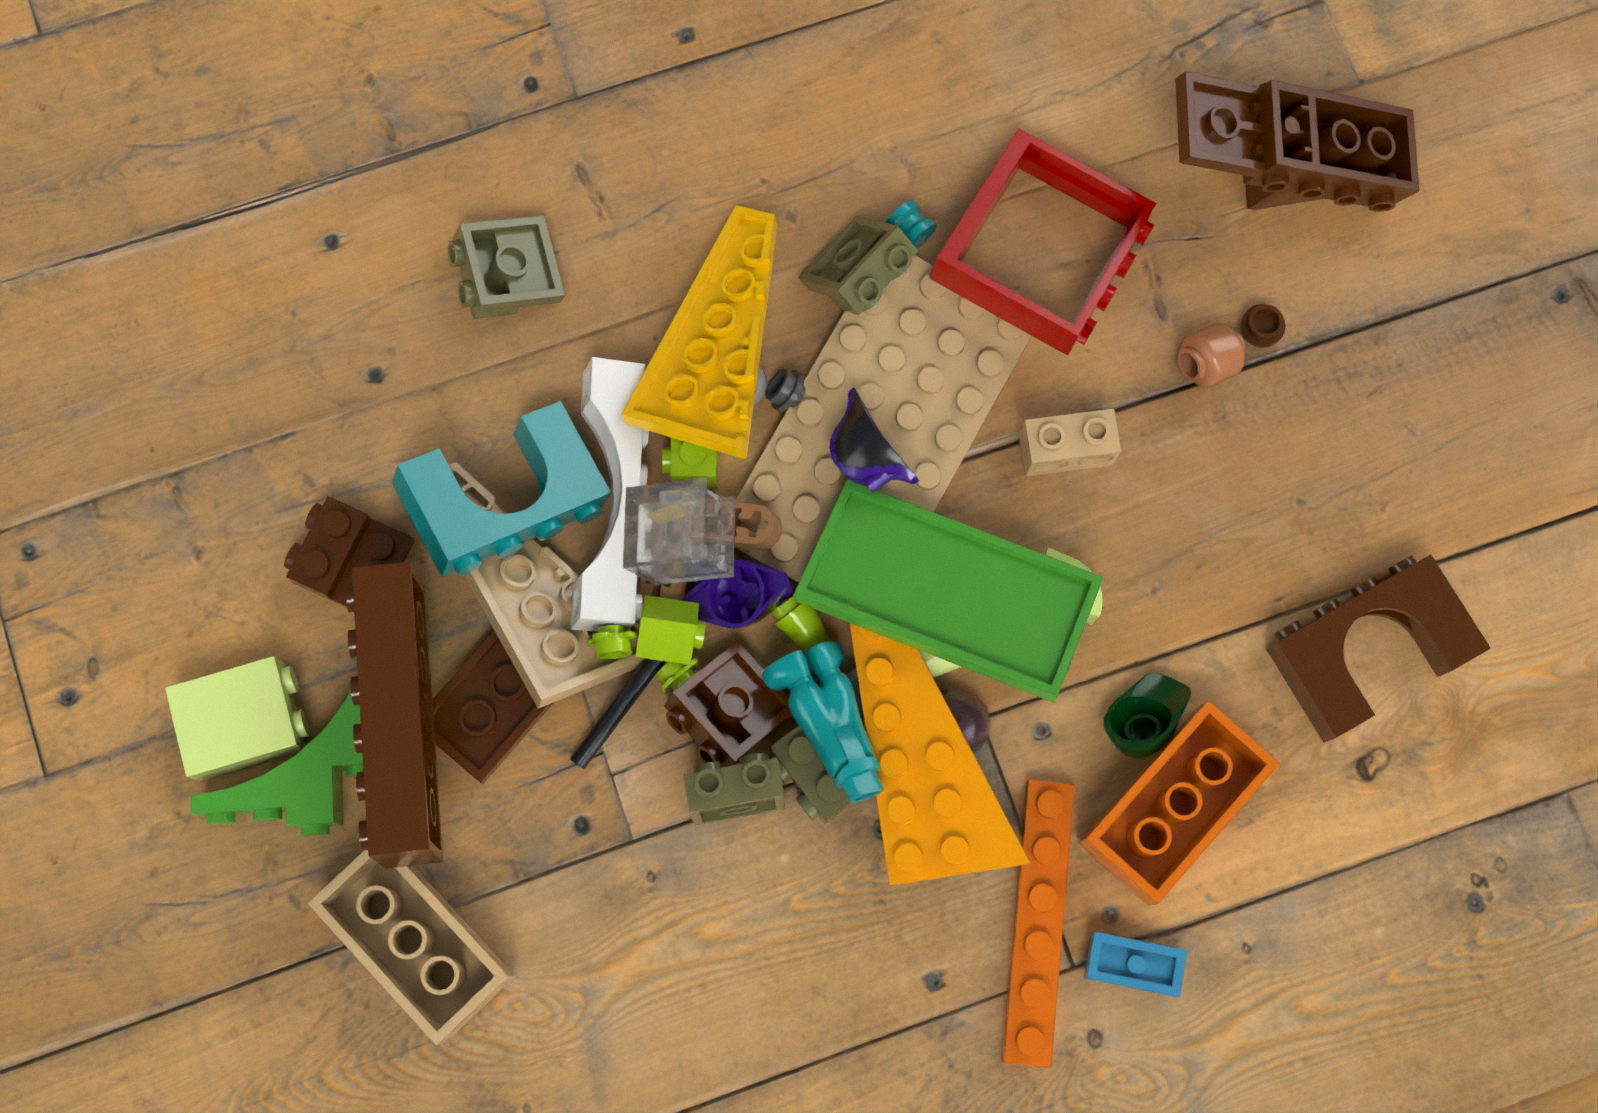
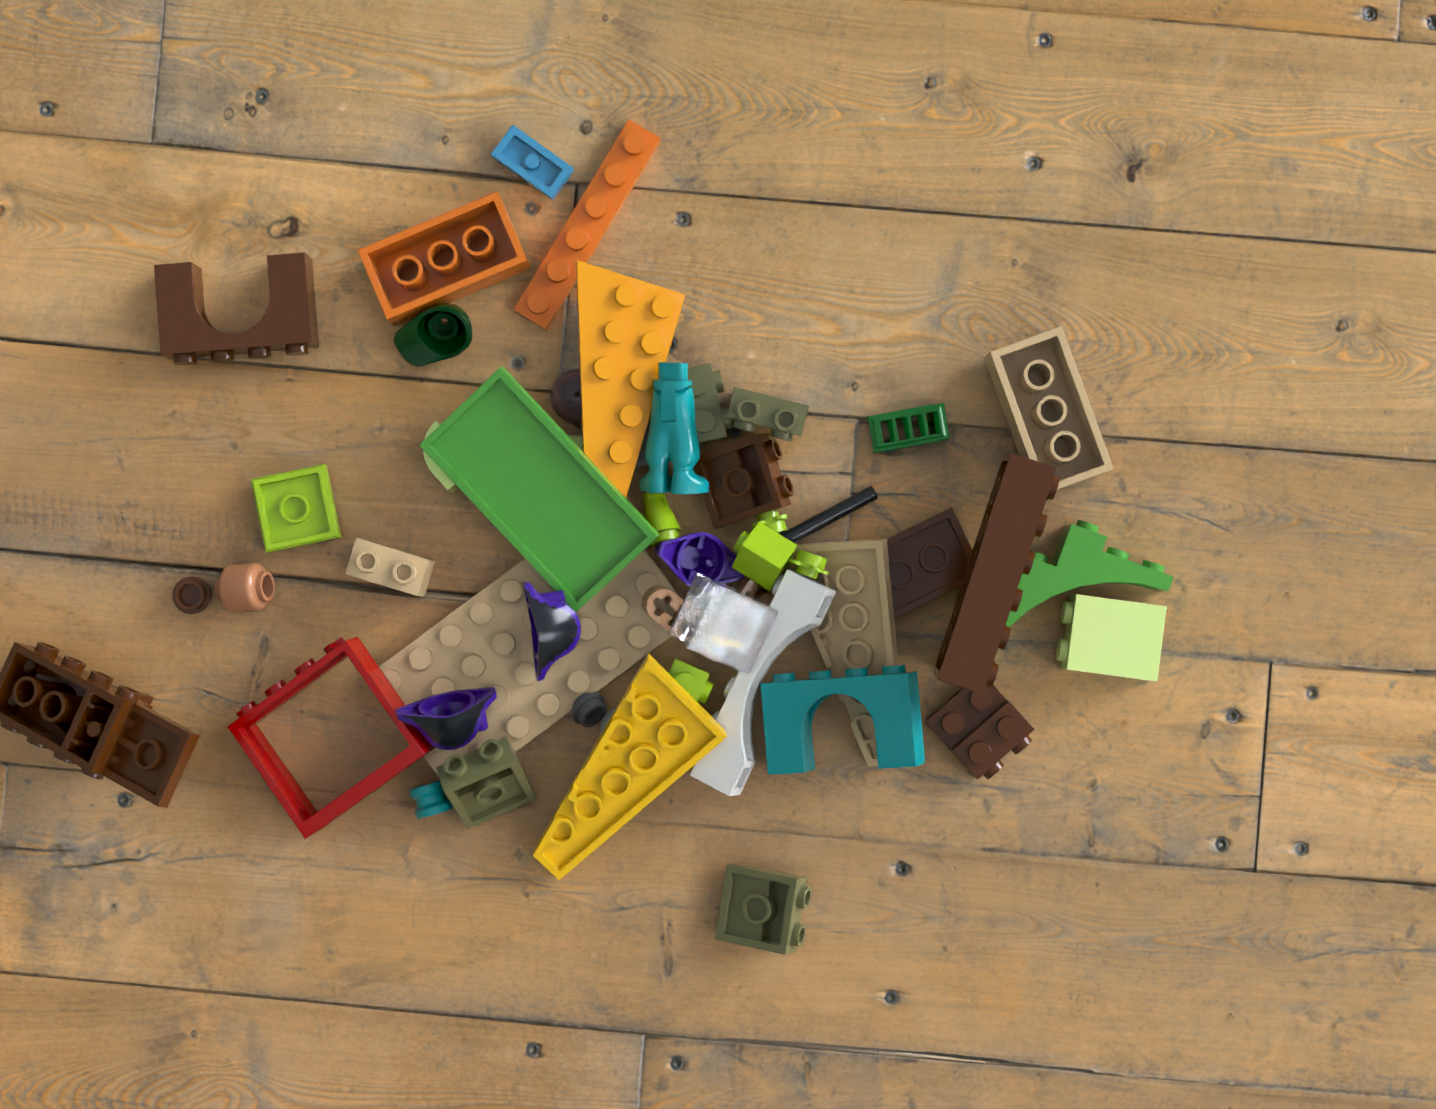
camera: 150 degrees left, 10 degrees up
(535, 876) = (940, 423): none -> green slope
(930, 311) = (451, 717): none -> hat
(1201, 462) = (296, 508): none -> lime plate

